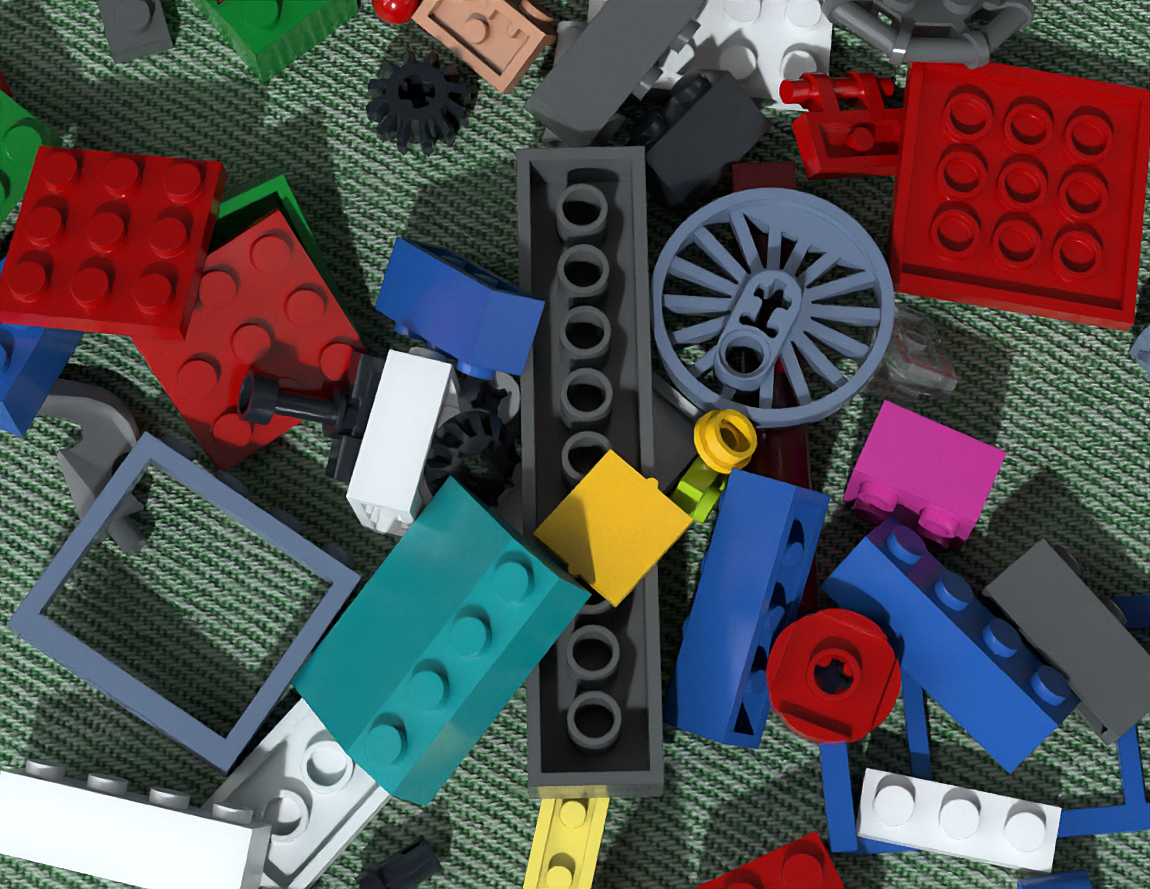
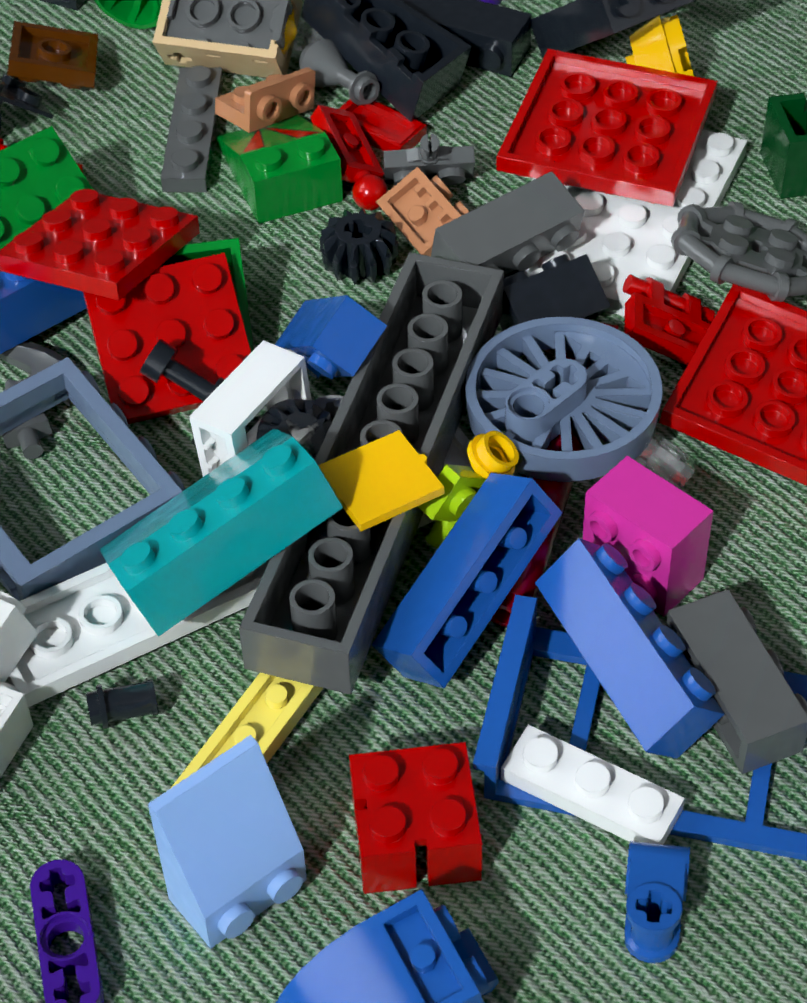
camera: 20 degrees right, 25 degrees down
(867, 661) = (518, 660): red plate -> none

